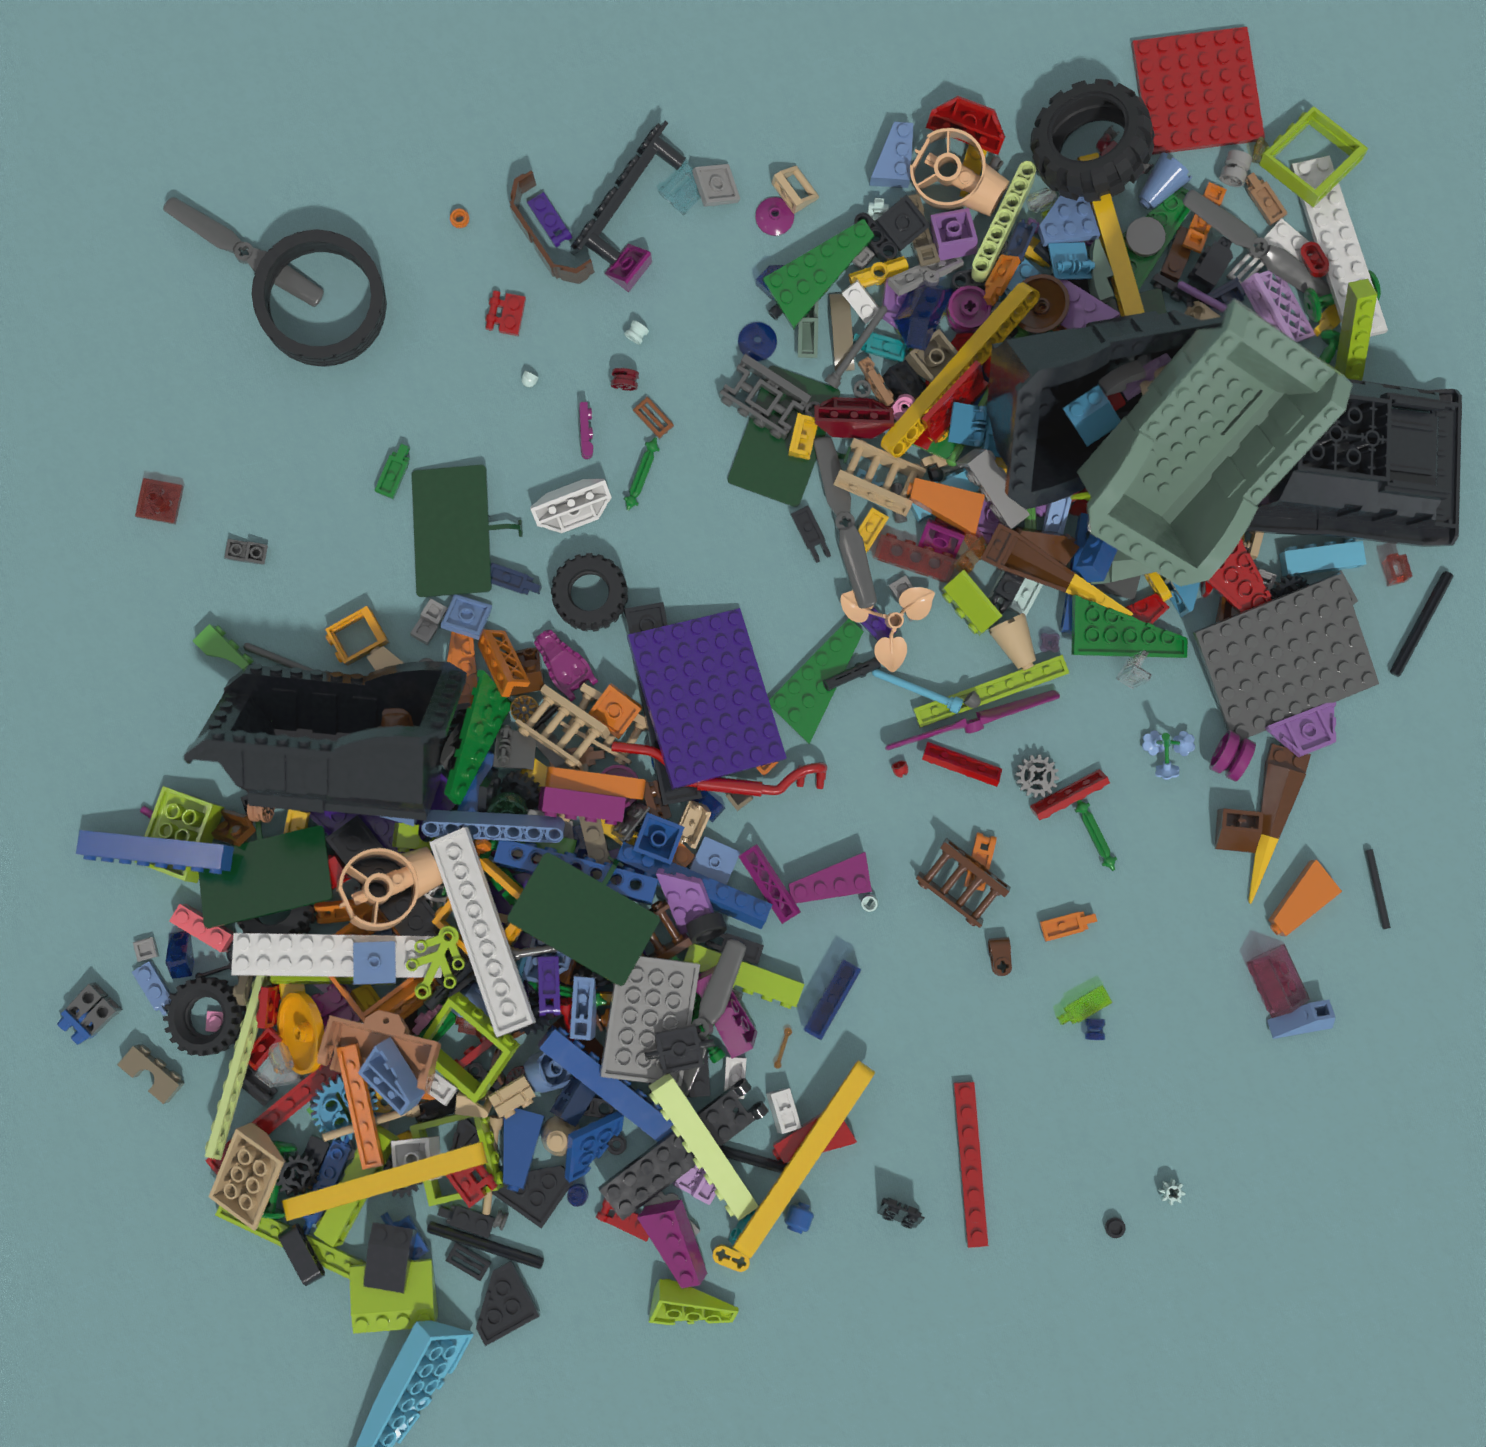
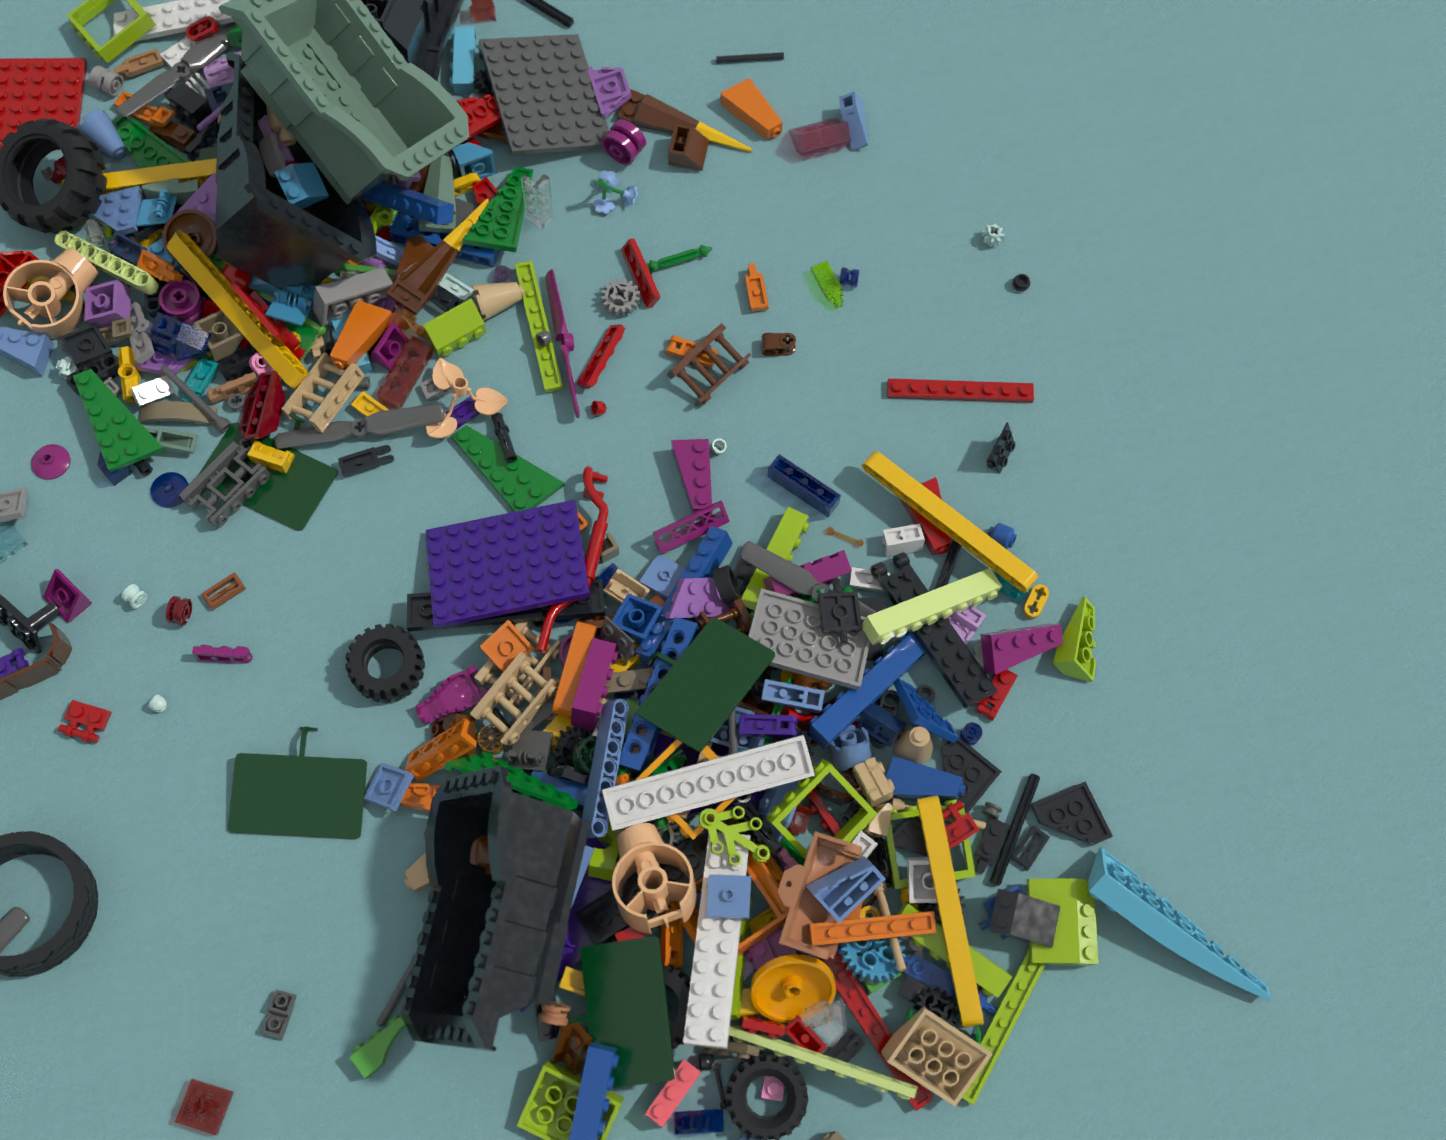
camera: 85 degrees left, 15 degrees down
(301, 1254) = (1018, 1011): black beam -> none
(349, 620) = (380, 883): light orange window -> none
(393, 472) = (226, 849): green hinge -> none
(429, 621) = (387, 827): light grey slope -> none
(513, 580) = (360, 738): dark blue hinge -> none
(572, 505) = (294, 671): white wedge -> none
(641, 474) = (252, 594): green wheel -> none
(788, 193) = (29, 443): tan tile -> none
(953, 704) = (545, 353): medium azure piece -> none
(1145, 236) = (149, 153): light grey tile -> none
(1259, 148) = (92, 62): clear yellow slope -> none

